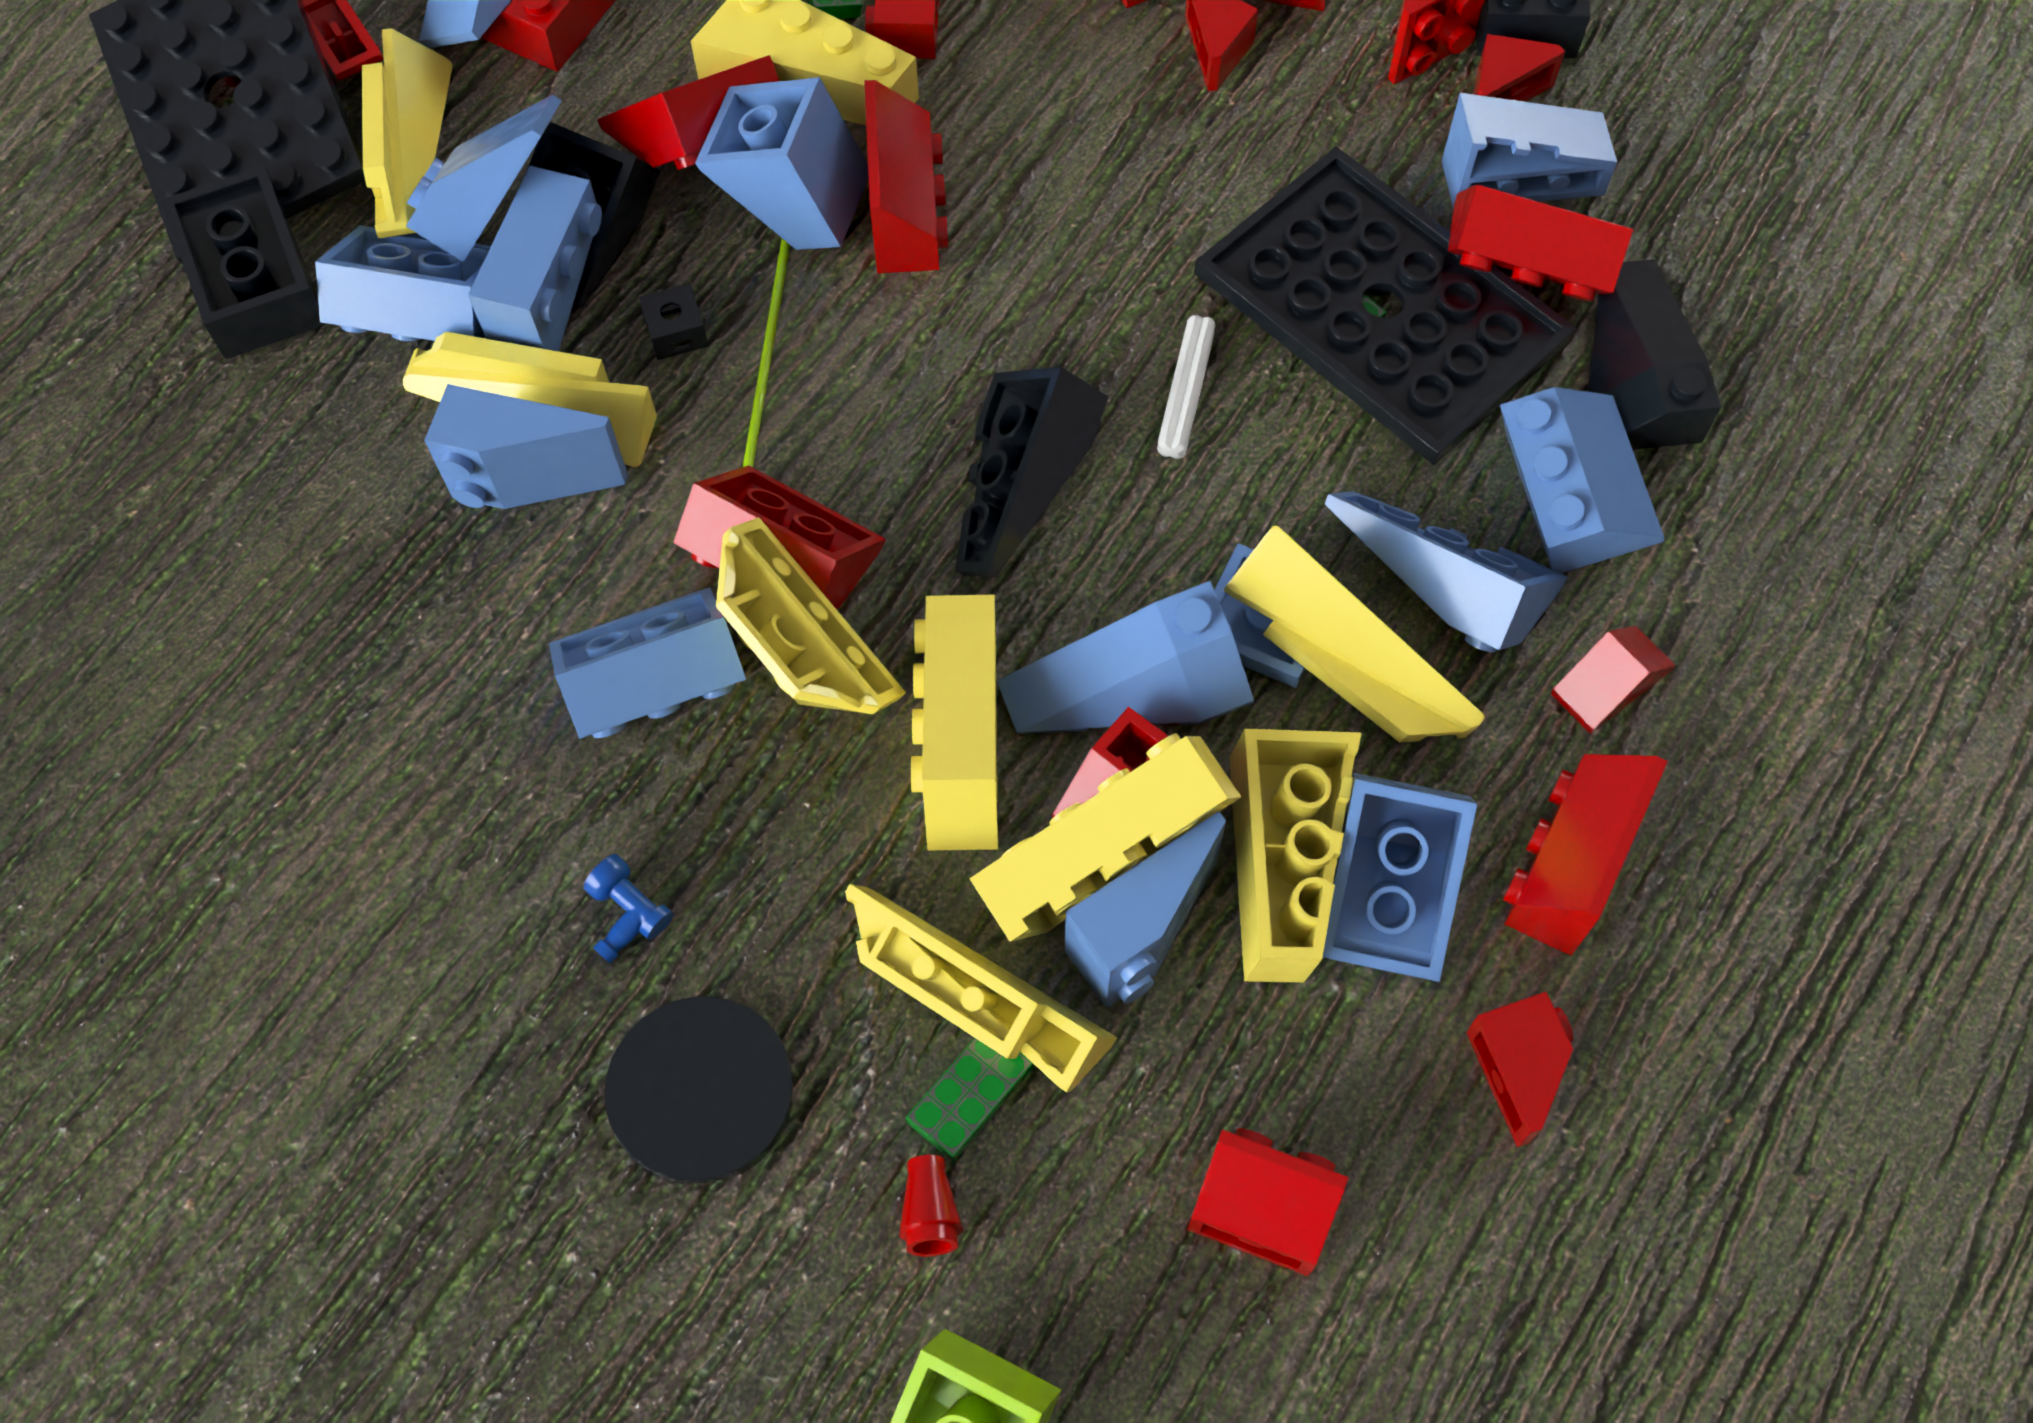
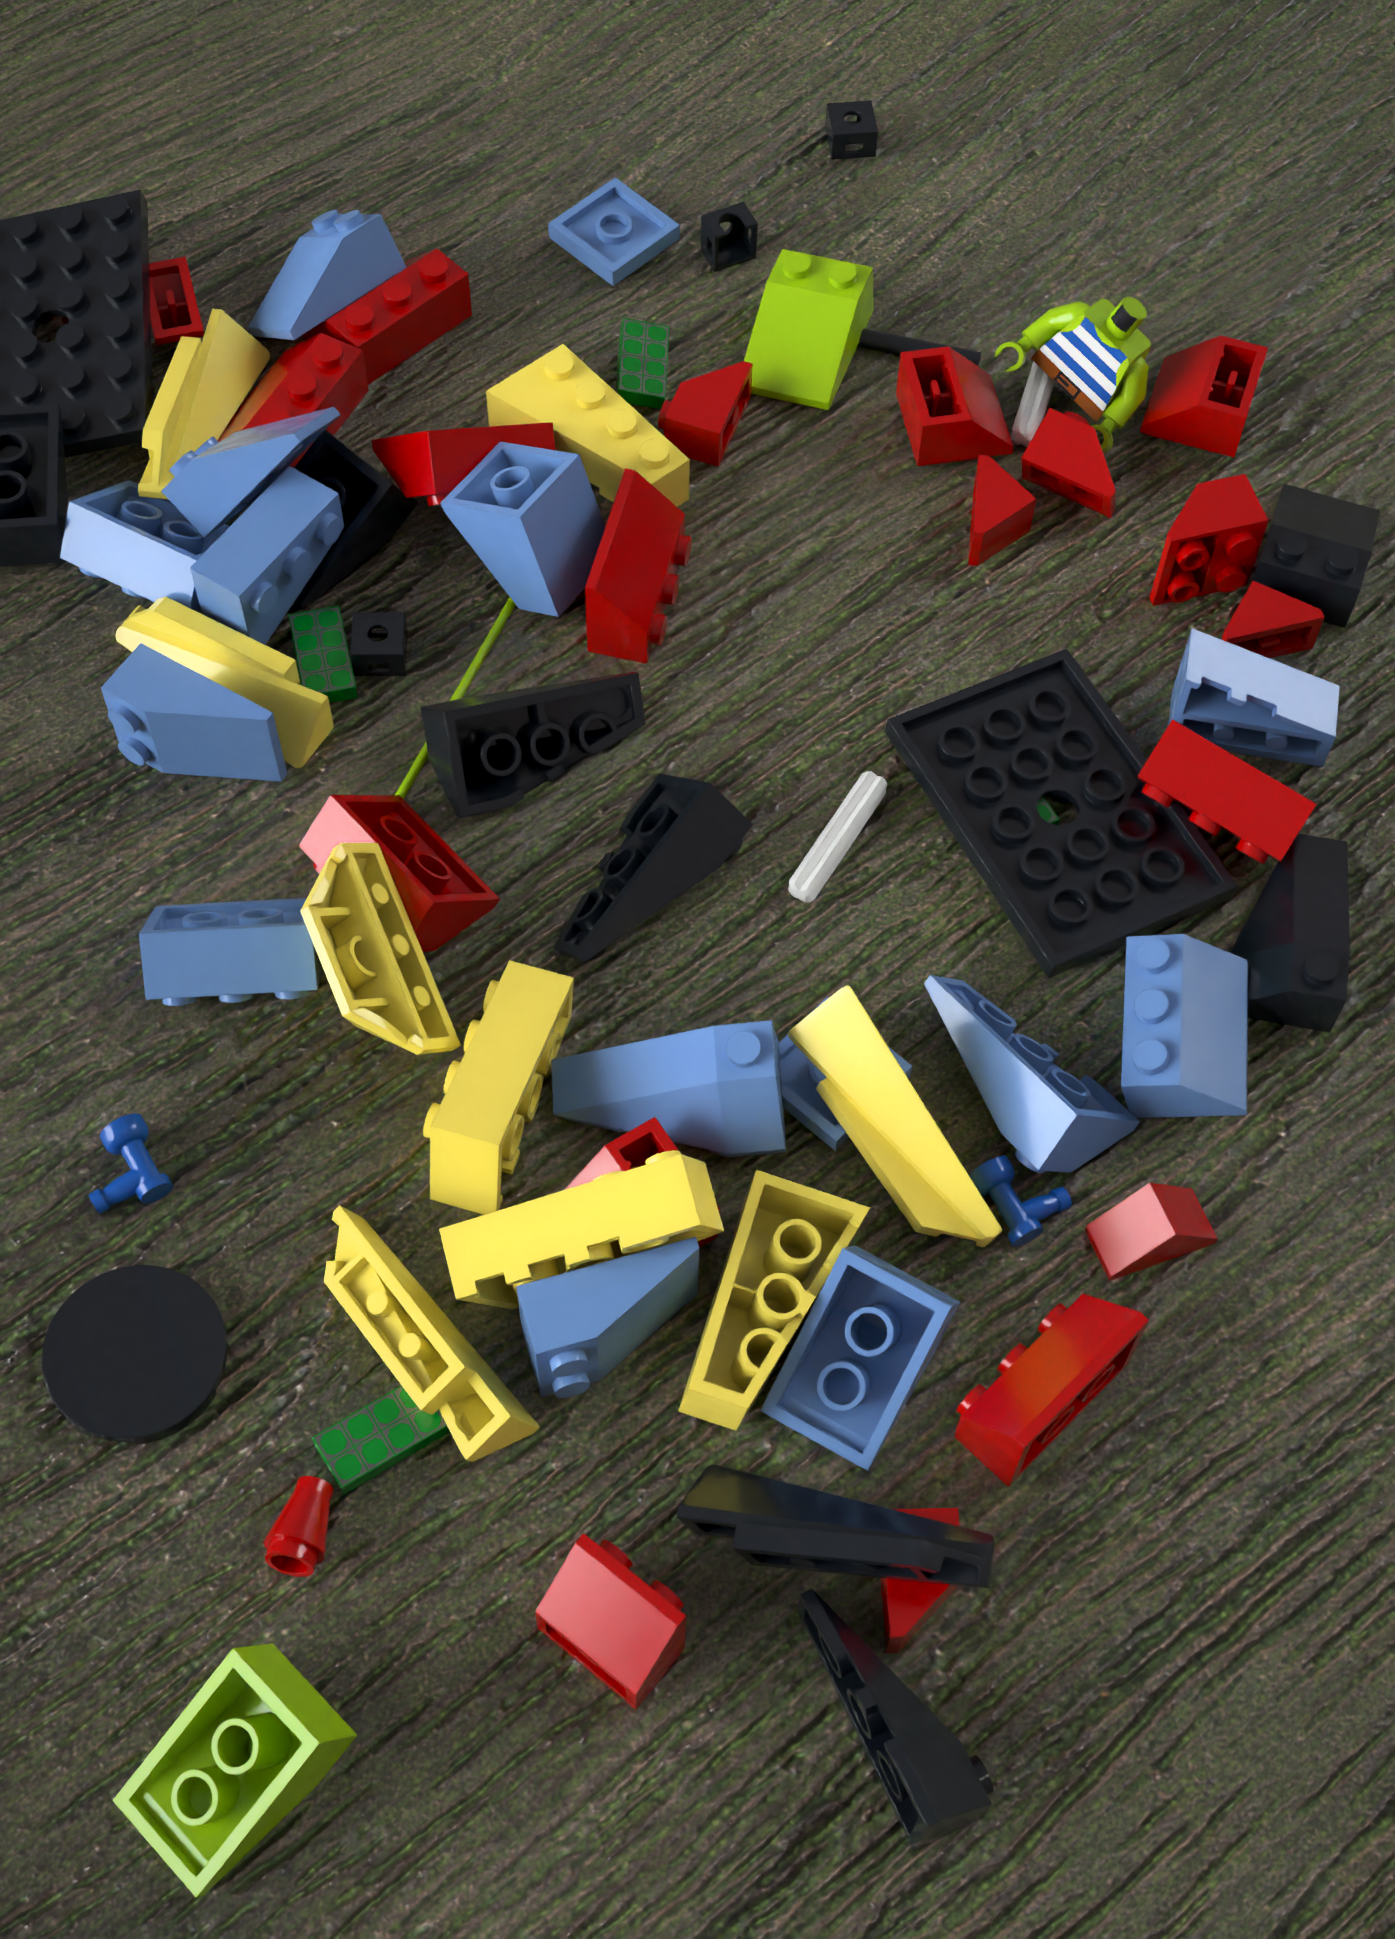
camera: 15 degrees right, 5 degrees down
(497, 82) = (306, 380): none -> red slope
(621, 344) = (323, 653): none -> green tile
(841, 381) = (512, 741): none -> black wedge
(1439, 1052) = (829, 1533): none -> black wedge
(1491, 698) = (1022, 1218): none -> blue piece
(1586, 1236) = (911, 1750): none -> black wedge

